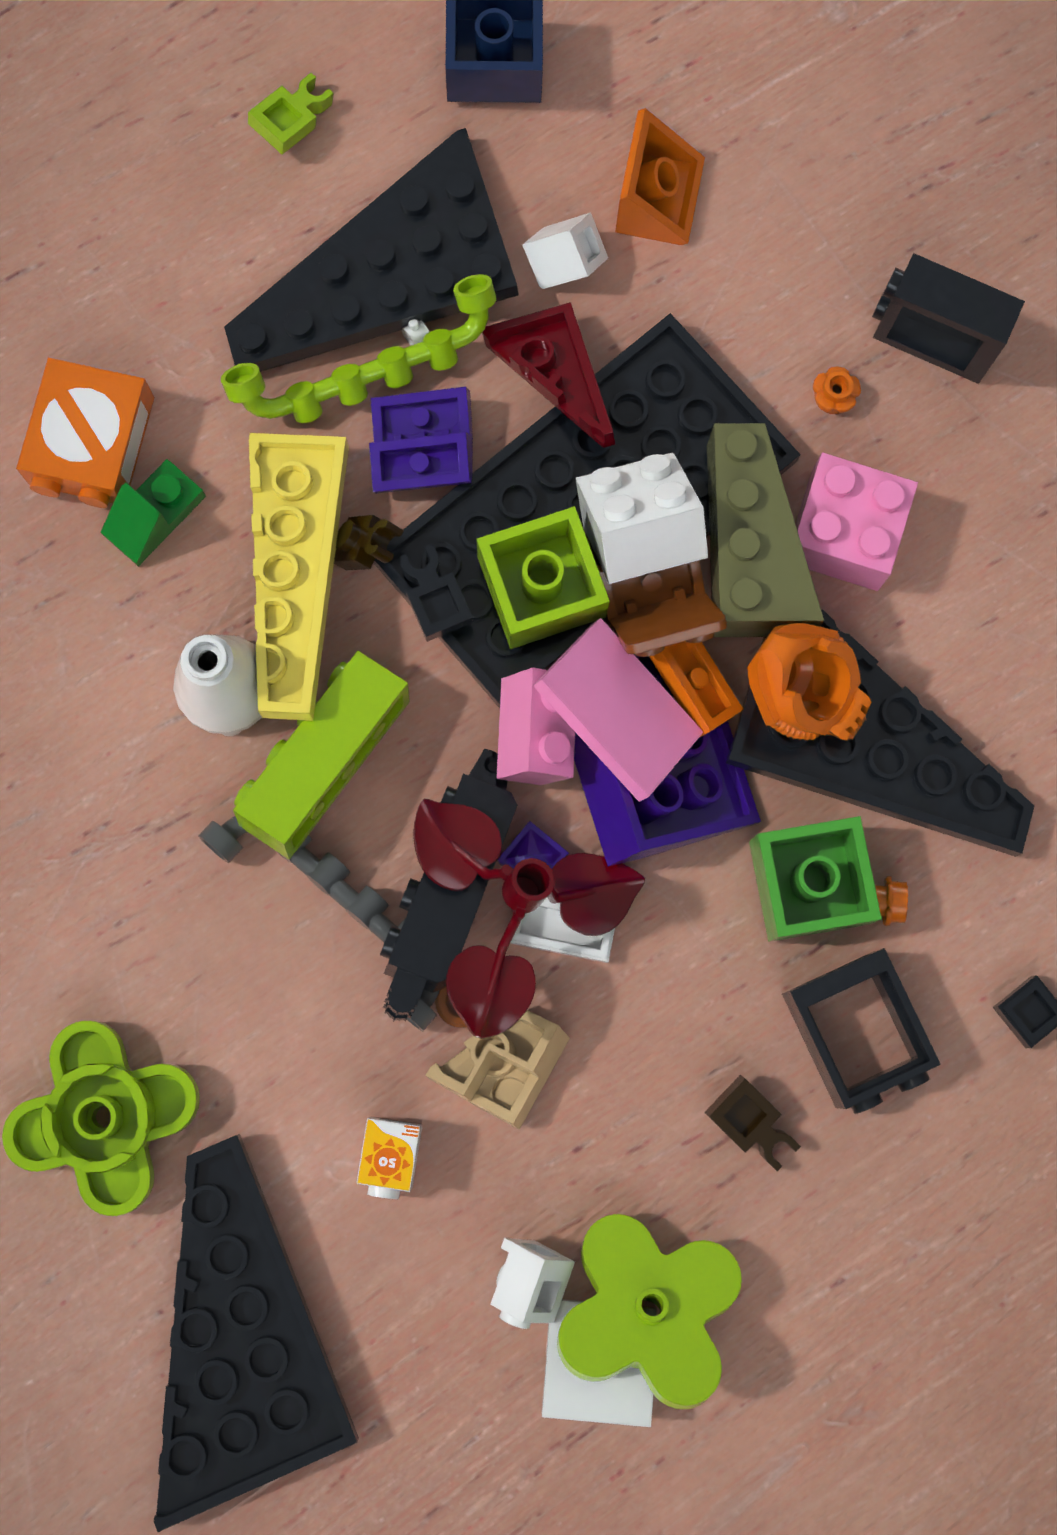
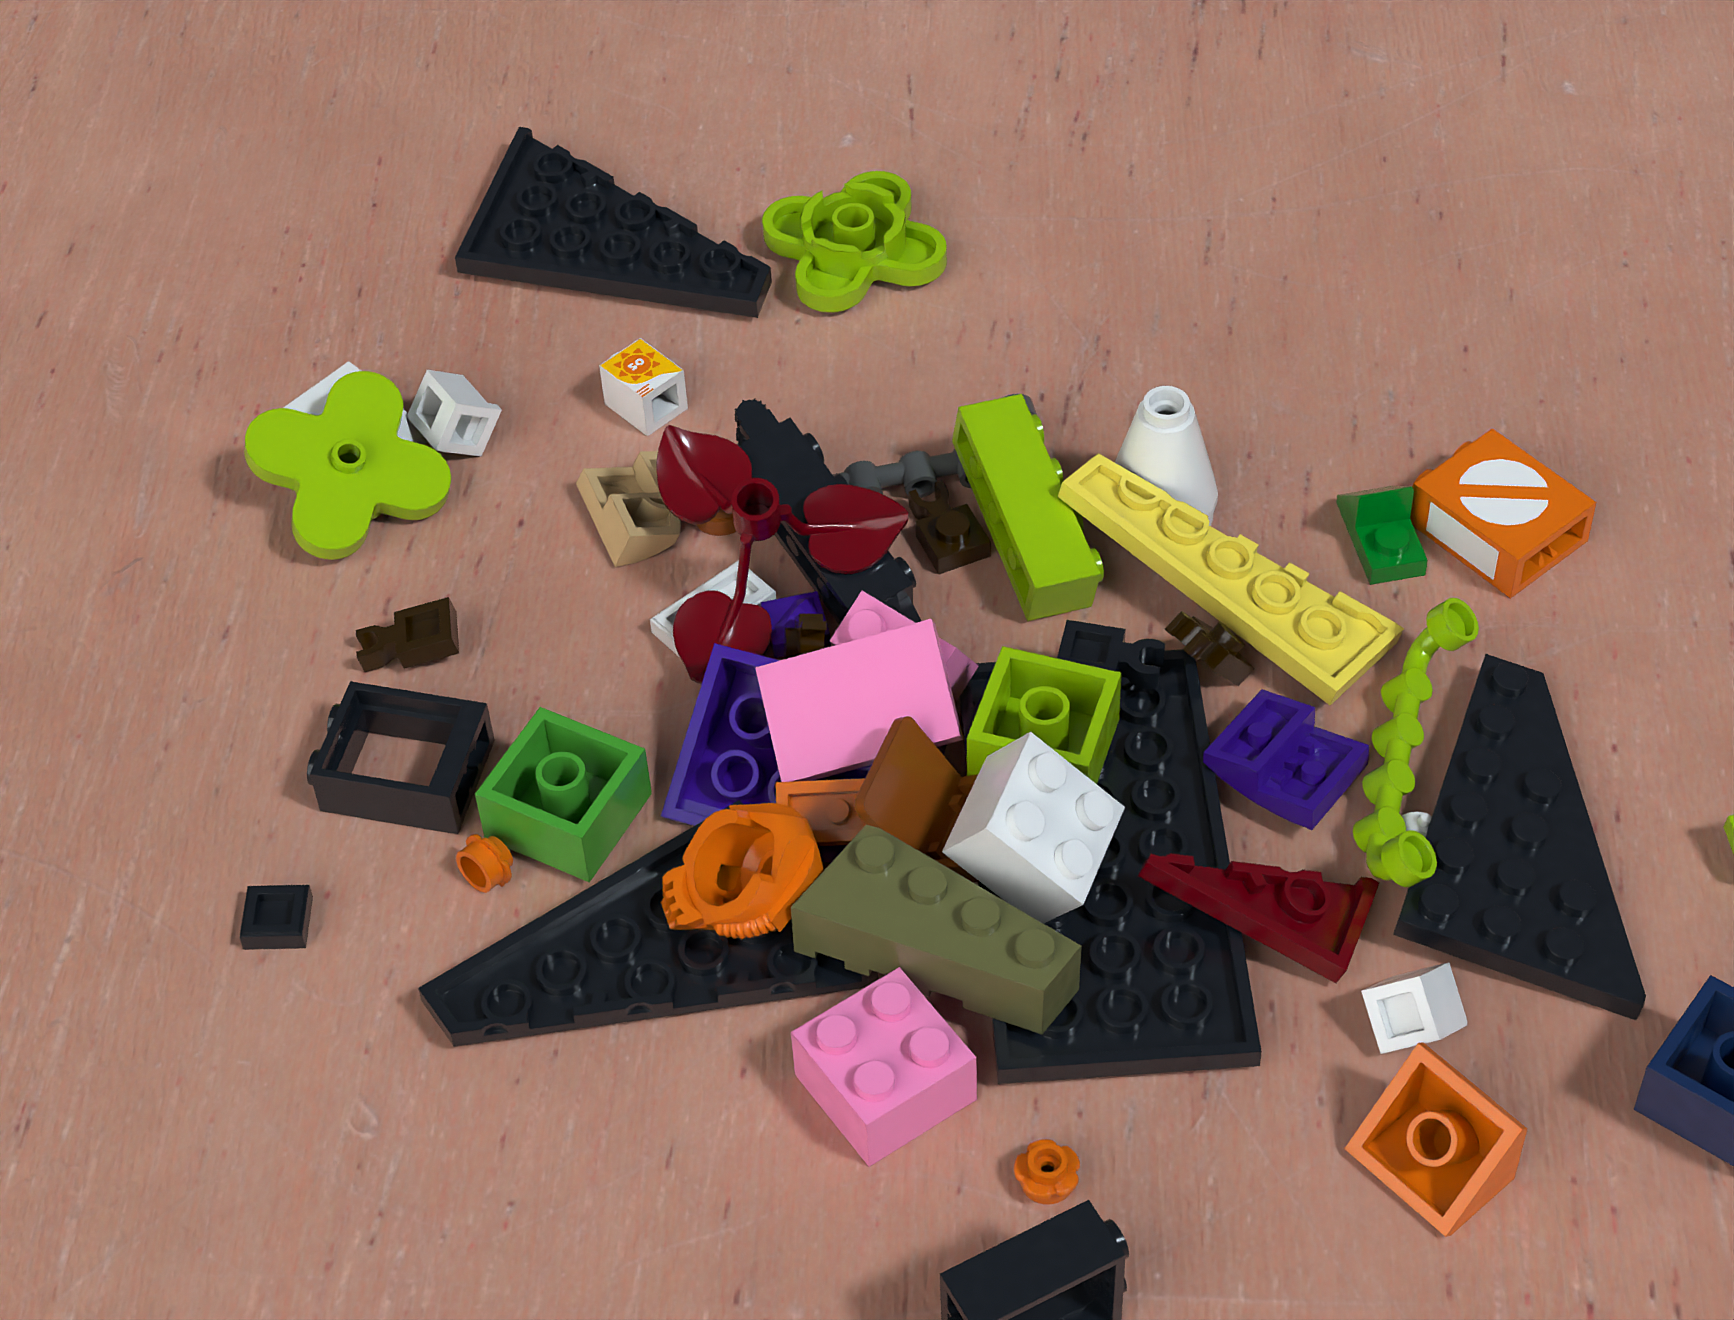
camera: 135 degrees right, 30 degrees down
(368, 811) = (947, 534): none -> dark brown plate
(565, 815) = (805, 636): none -> dark brown plate

